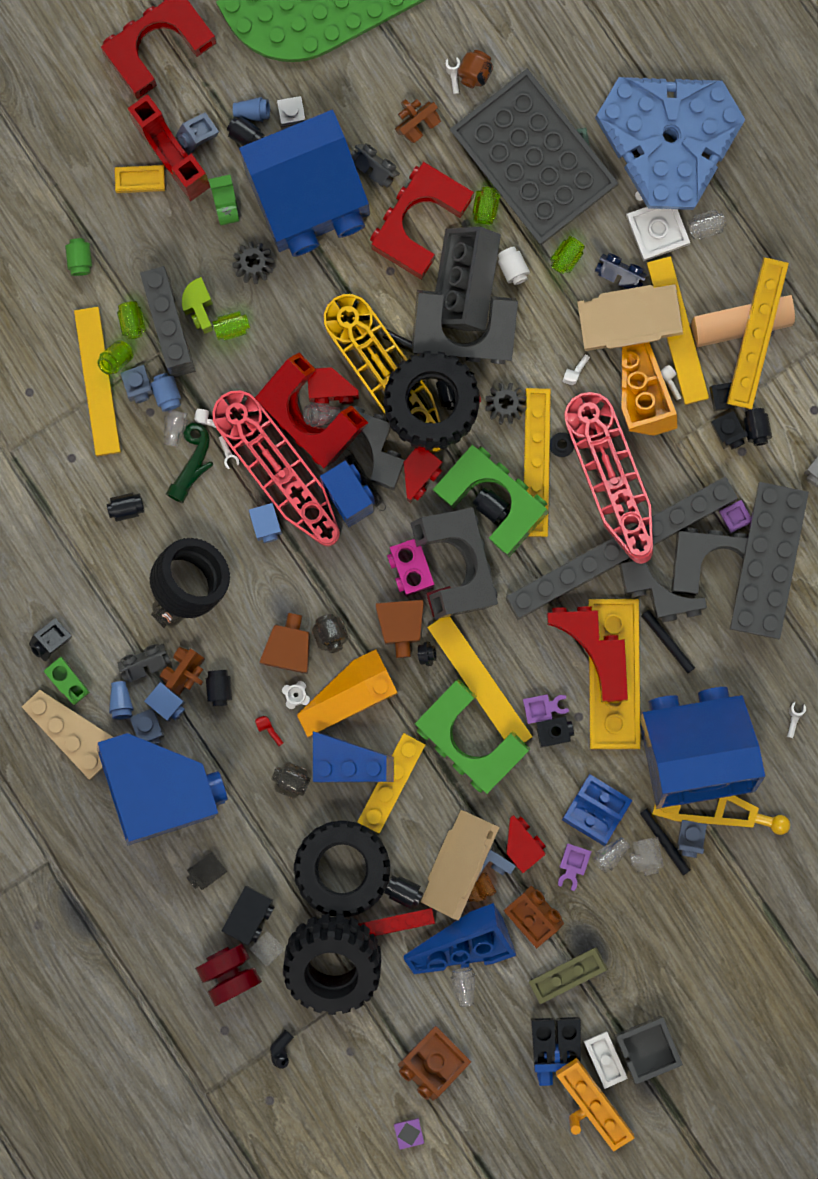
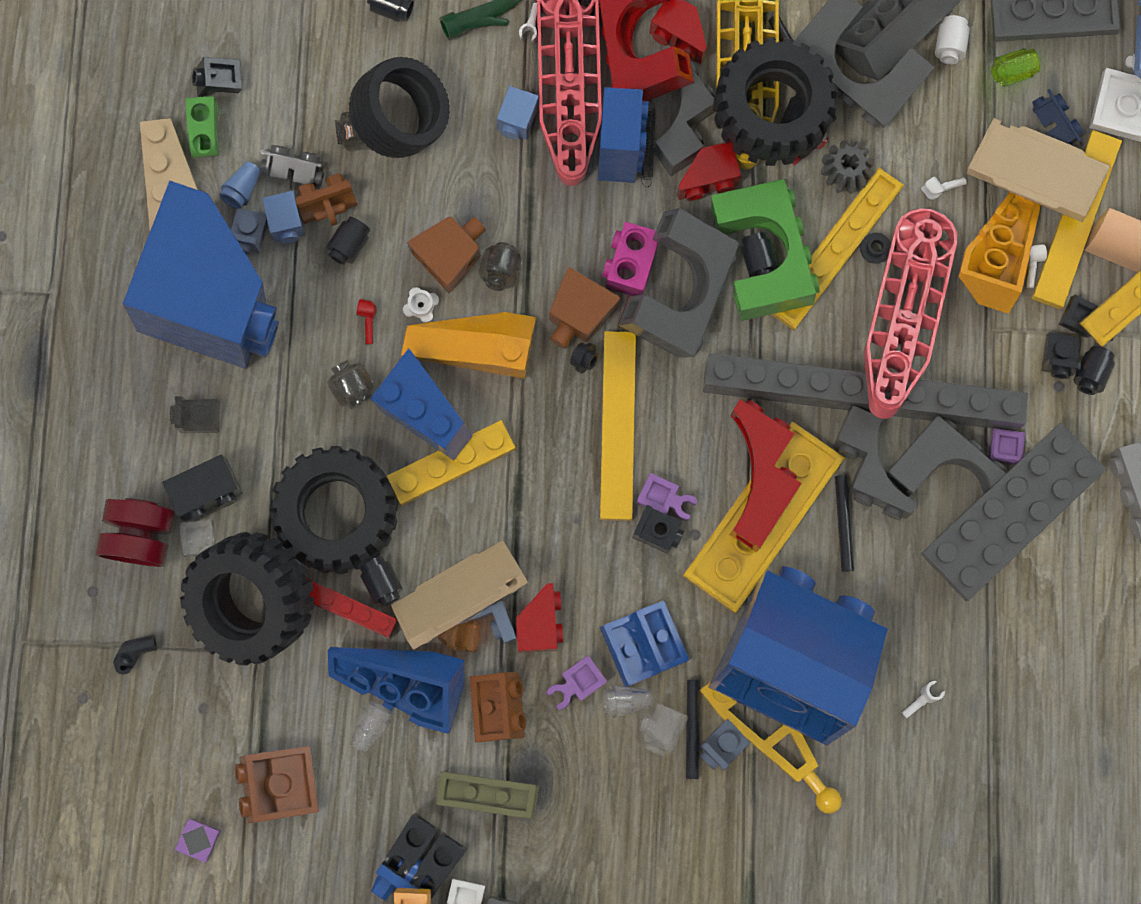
camera: 30 degrees right, 5 degrees down
(319, 414) = (647, 42): clear cone -> none
(438, 726) = (542, 437): bright green arch -> none

